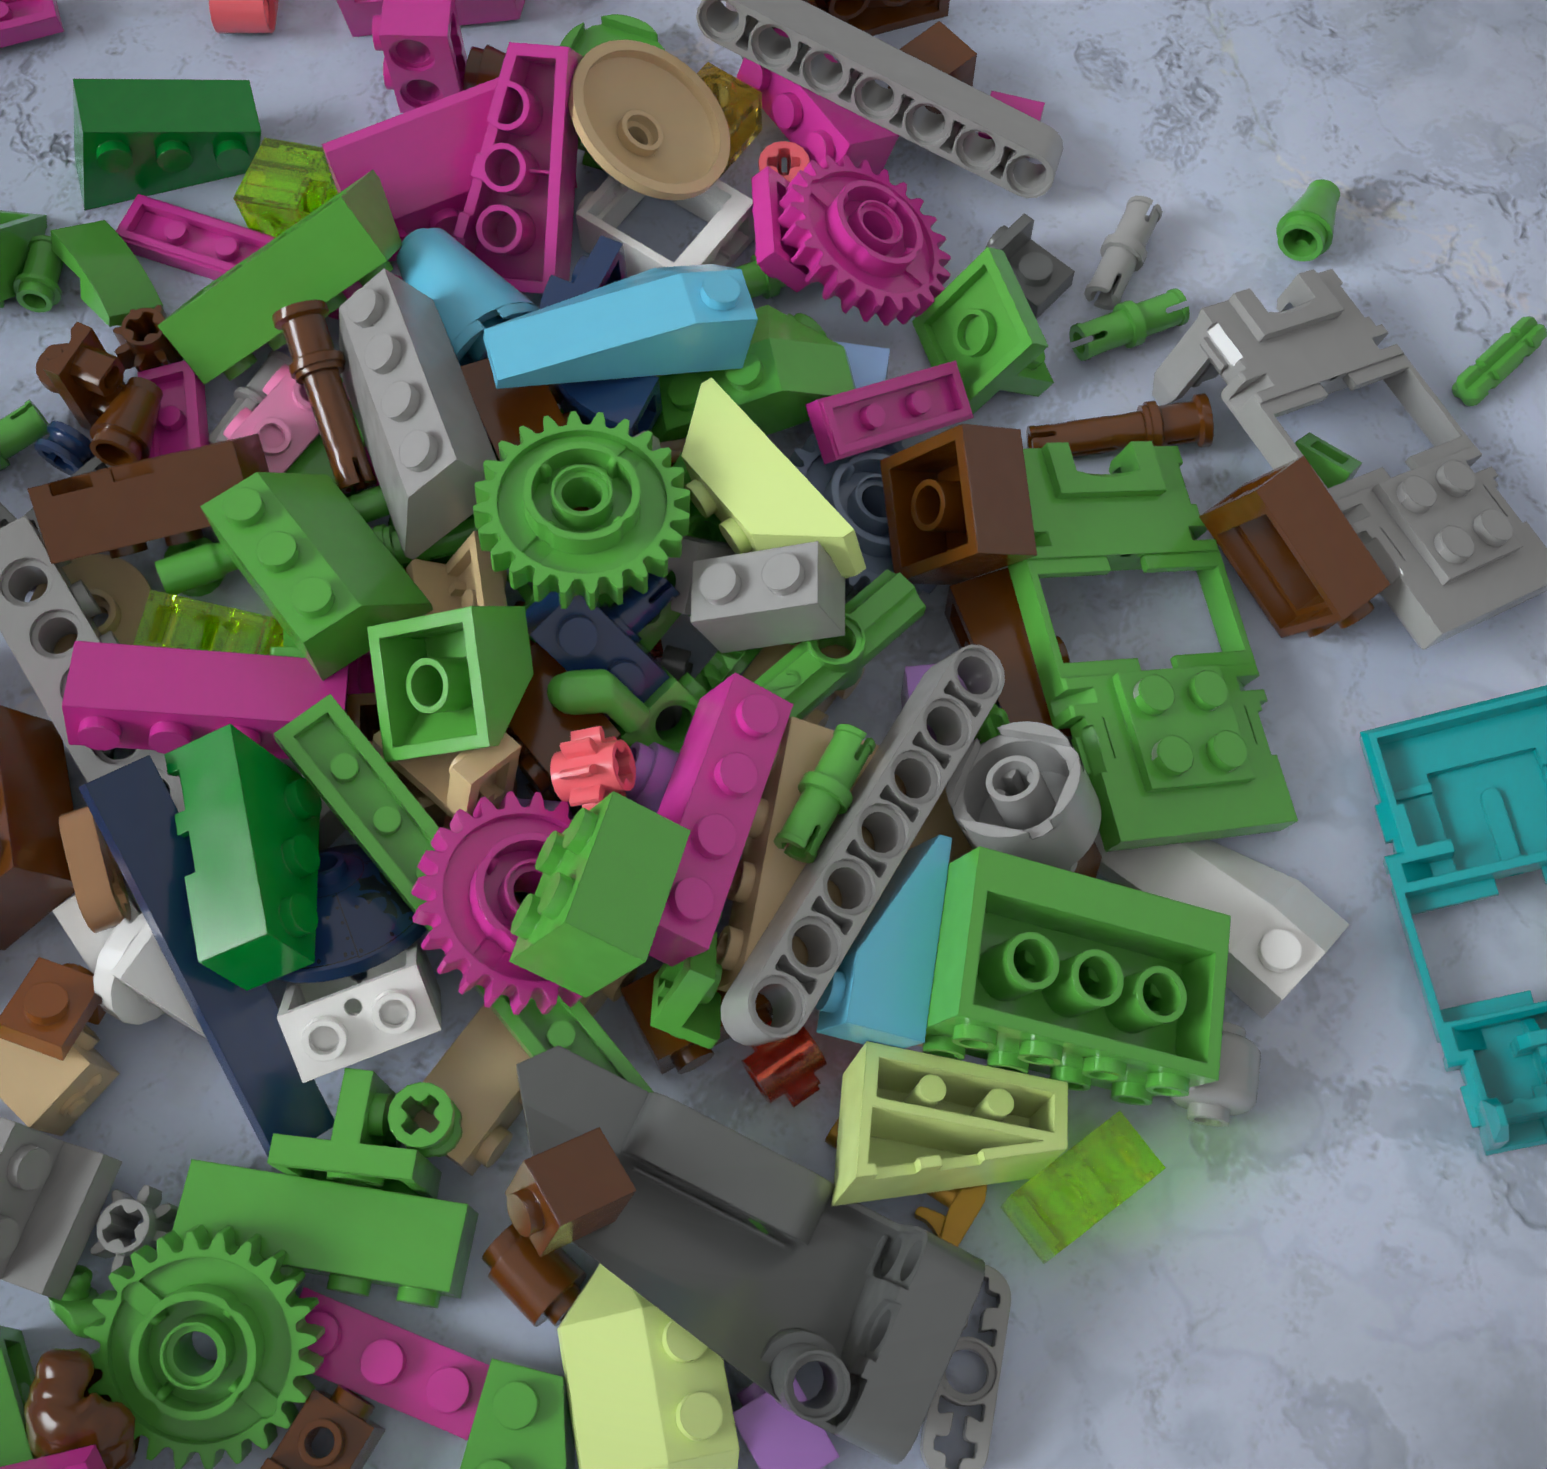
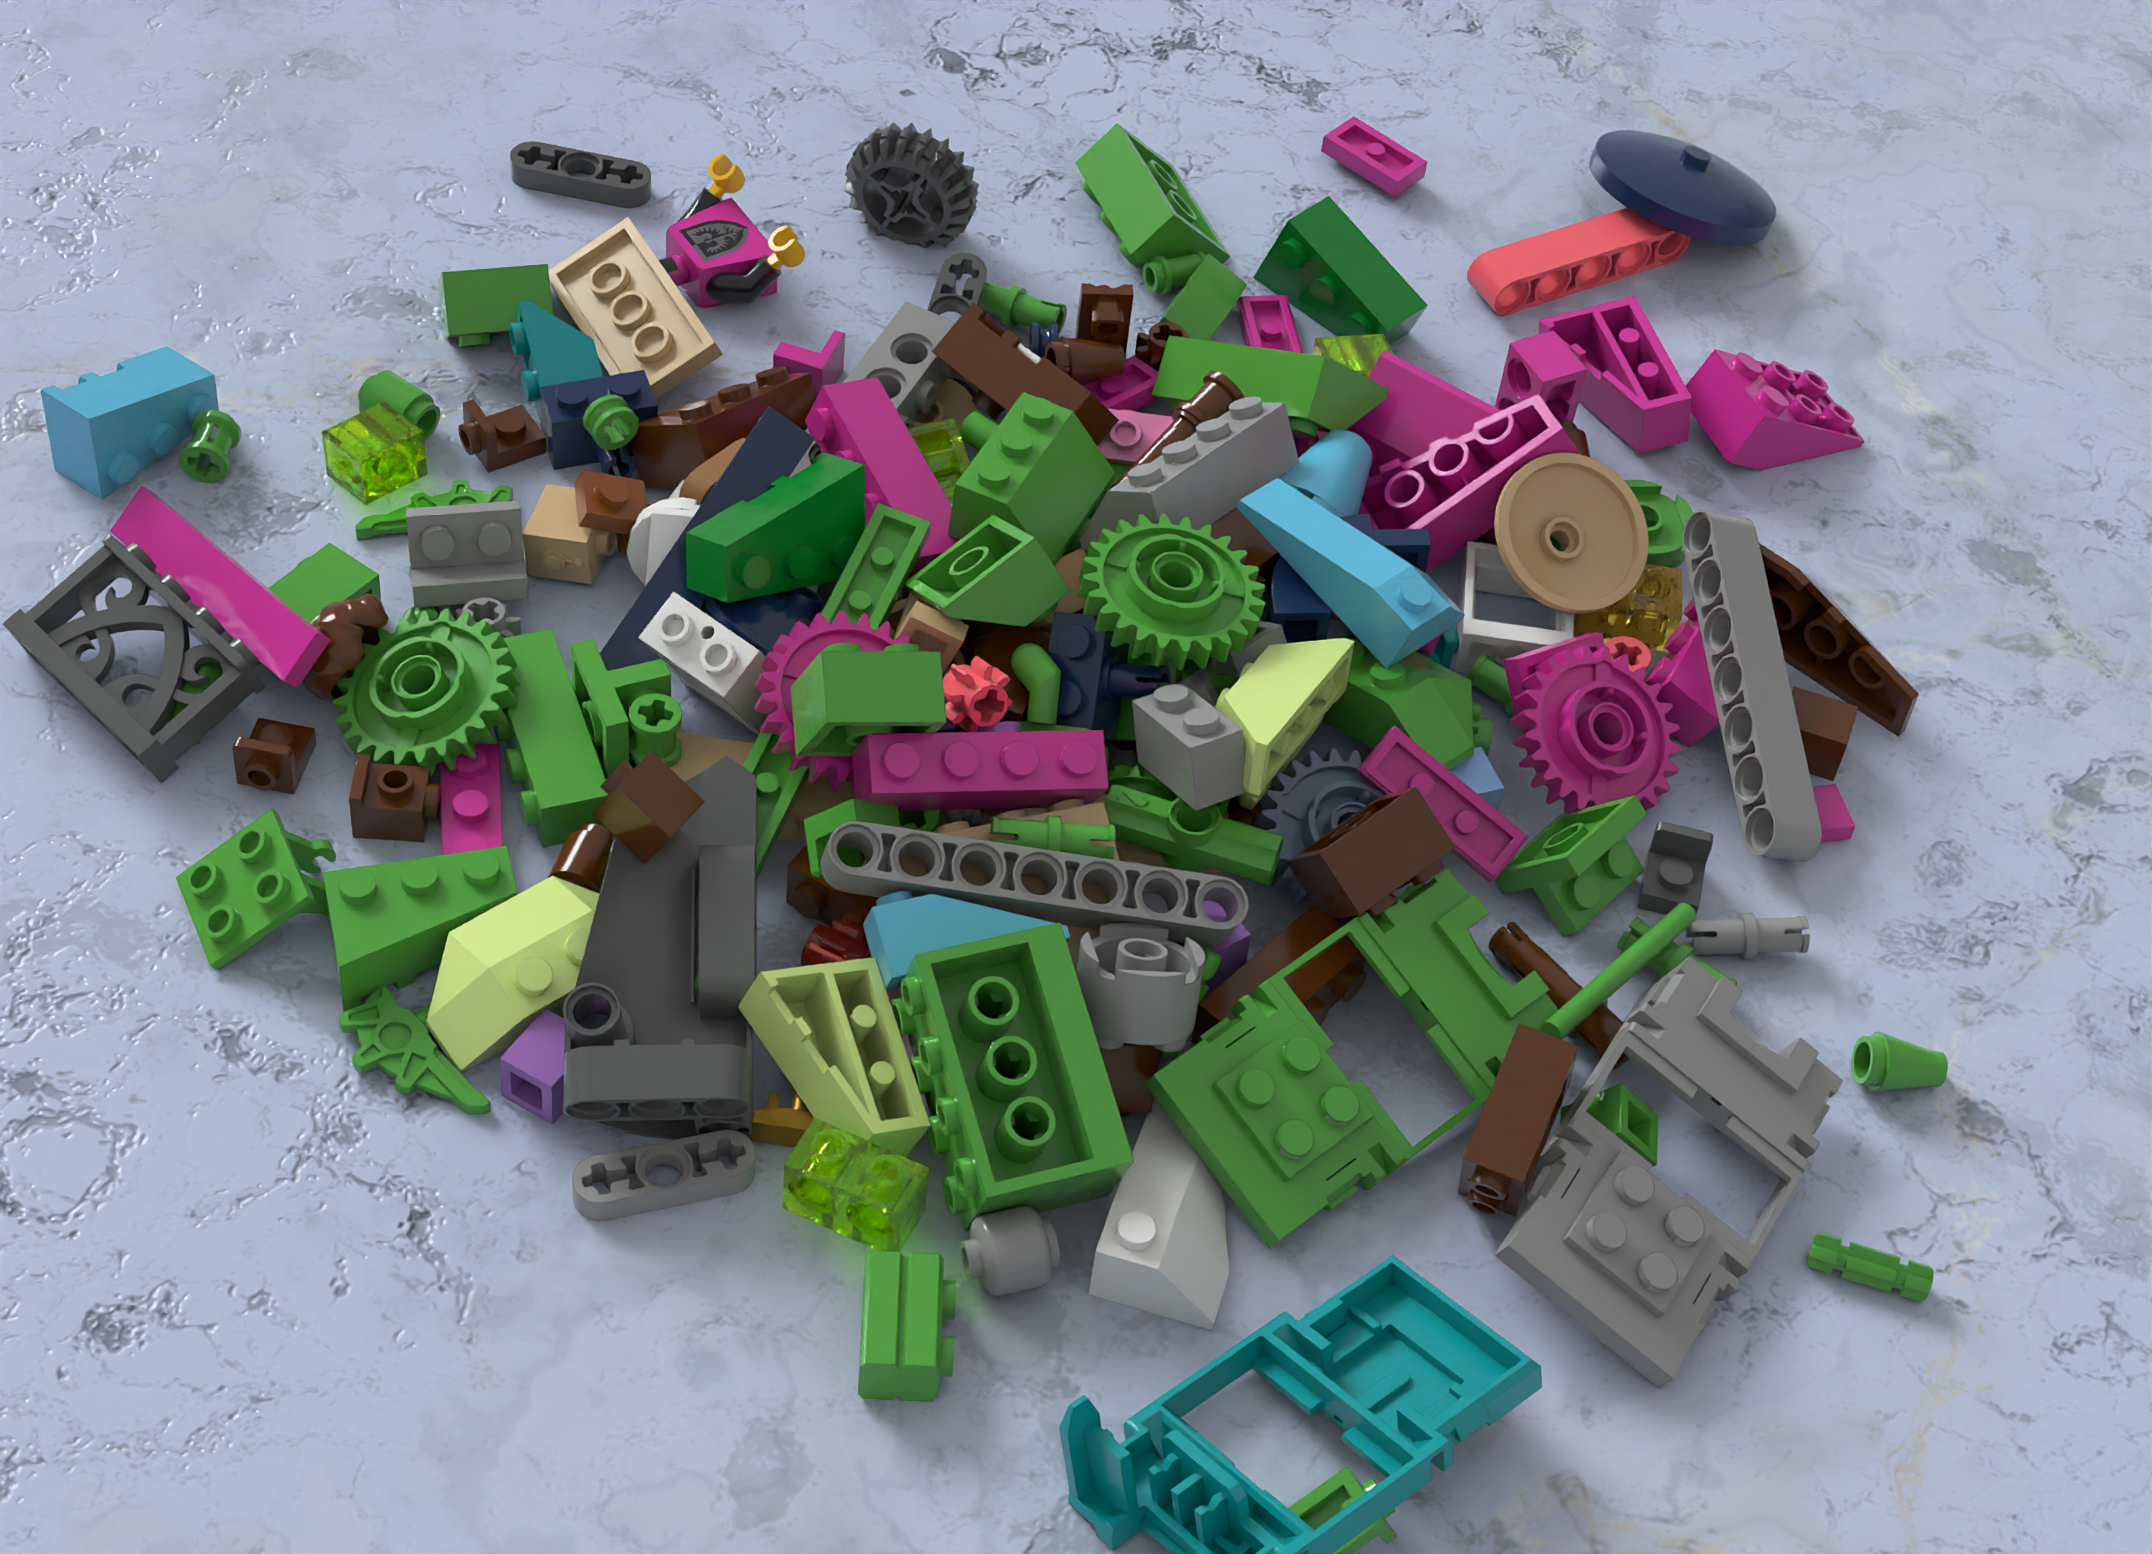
camera: 55 degrees right, 20 degrees down
(1147, 376) = (1619, 971): none -> bright green bar
(1261, 1220) = (903, 1326): none -> bright green brick

